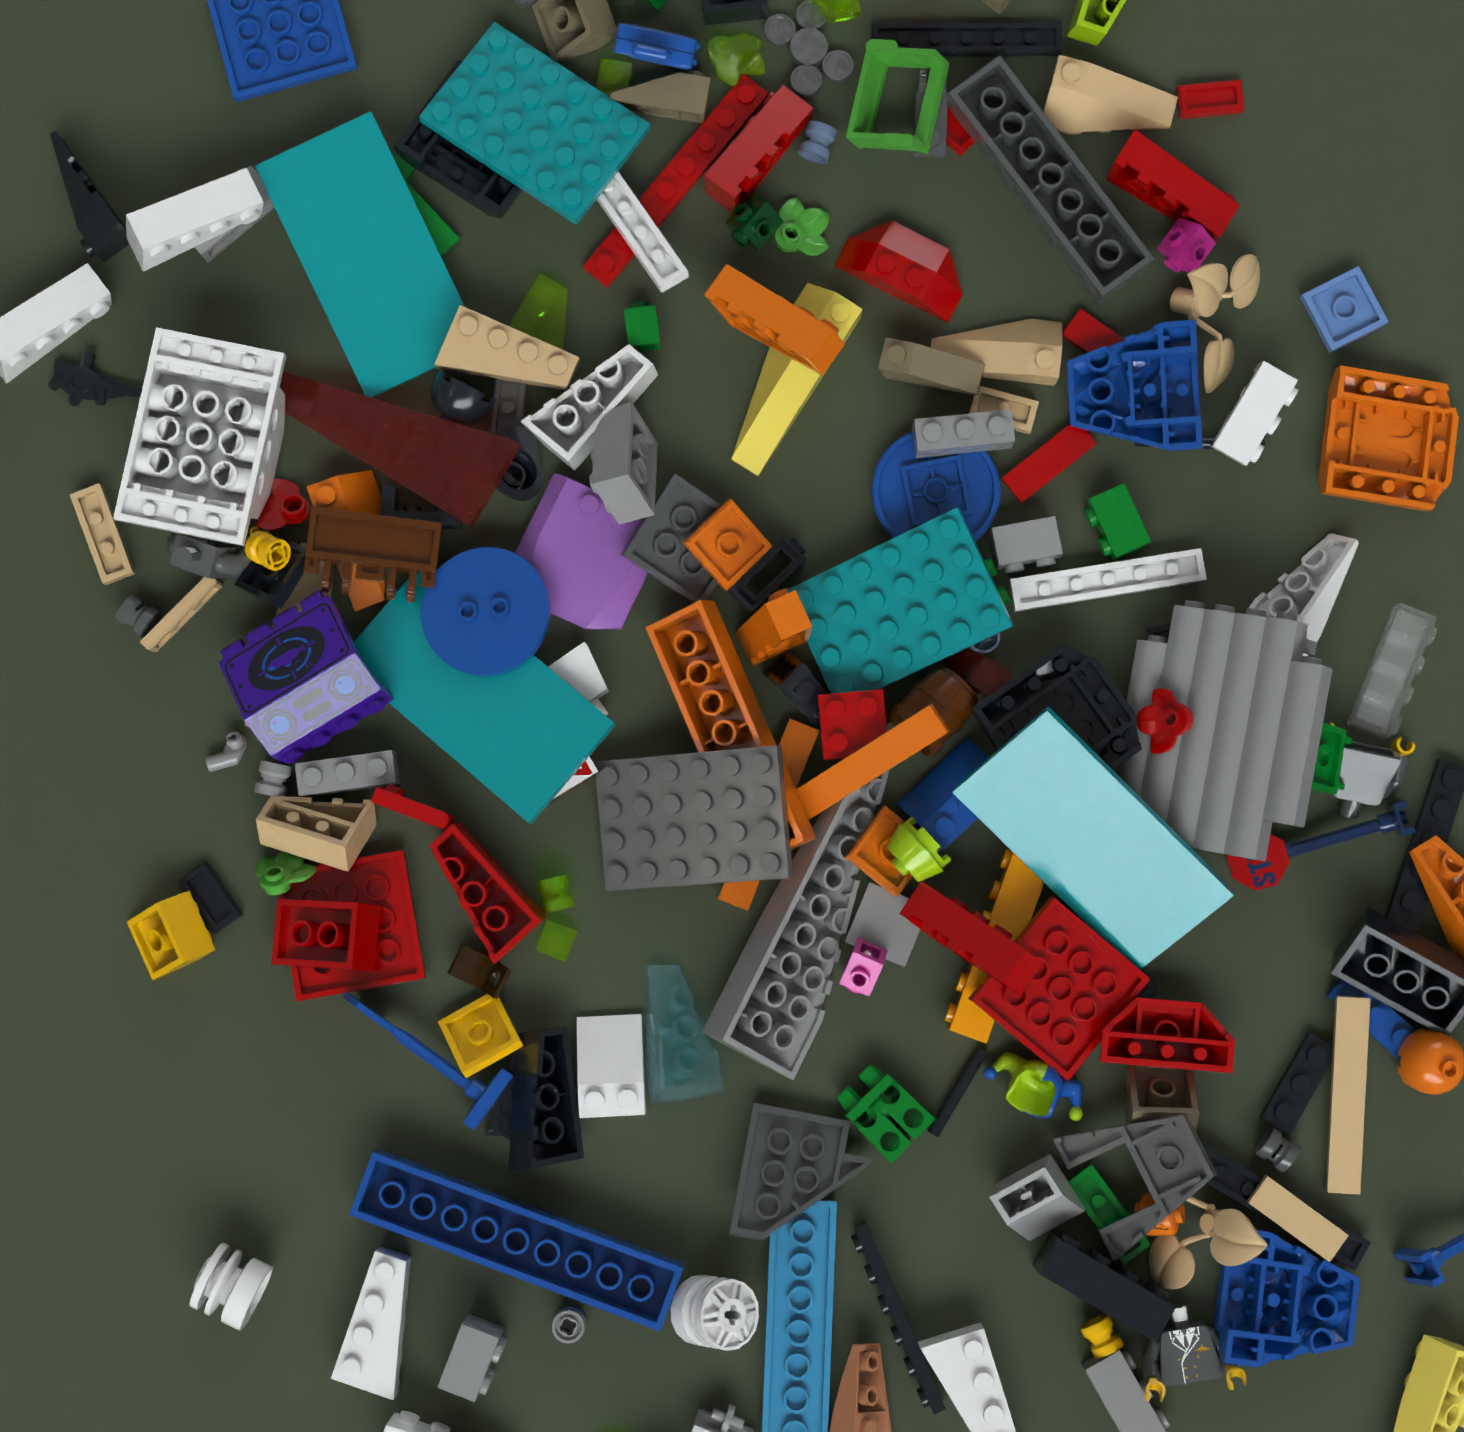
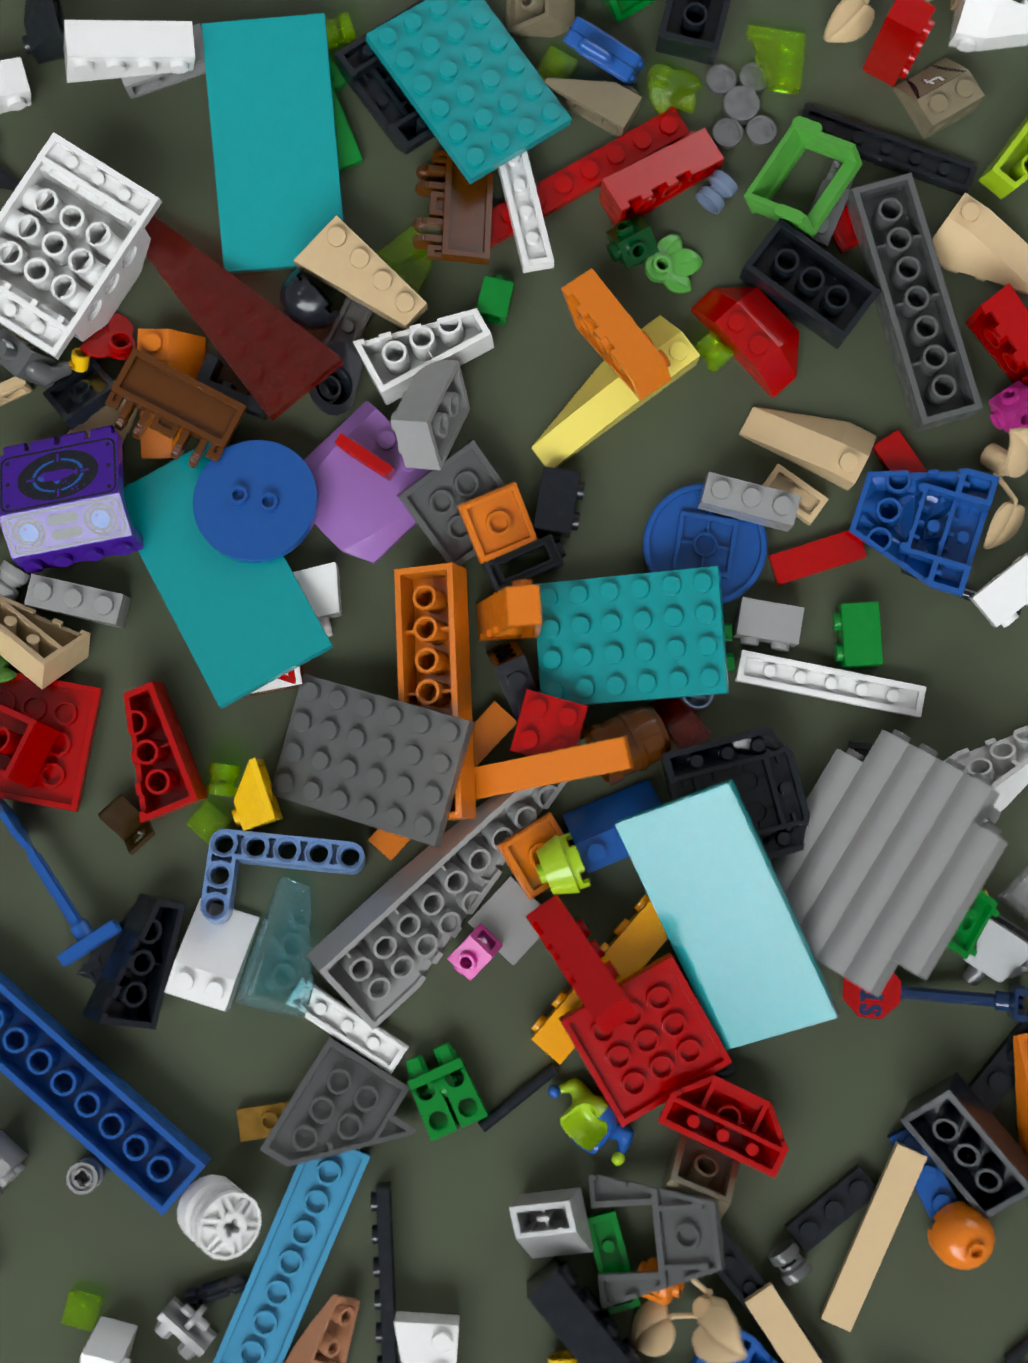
camera: 15 degrees right, 0 degrees up
(267, 550) = (80, 372): yellow wheel -> none
(392, 799) = (109, 642): red container -> none
(394, 115) = (346, 29): none -> clear neon green wheel
(480, 1034) = (105, 881): yellow plate -> none
(576, 529) = (365, 457): none -> red tile
(580, 253) = (465, 211): none -> reddish brown hinge
(594, 900) = (255, 799): none -> yellow slope
(631, 951) = (270, 857): none -> medium blue beam
(716, 1208) = (259, 1120): none -> pearl gold plate
(736, 1386) = (215, 1290): none -> black axle
(774, 1088) = (352, 1030): none -> white tile
(778, 502) = (557, 502): none -> black brick
(873, 299) = (714, 352): none -> clear neon green wheel
(929, 367) = (741, 431): dark tan slope -> none
(941, 199) = (809, 283): none -> black brick
(1164, 720) = (829, 831): red plate -> none

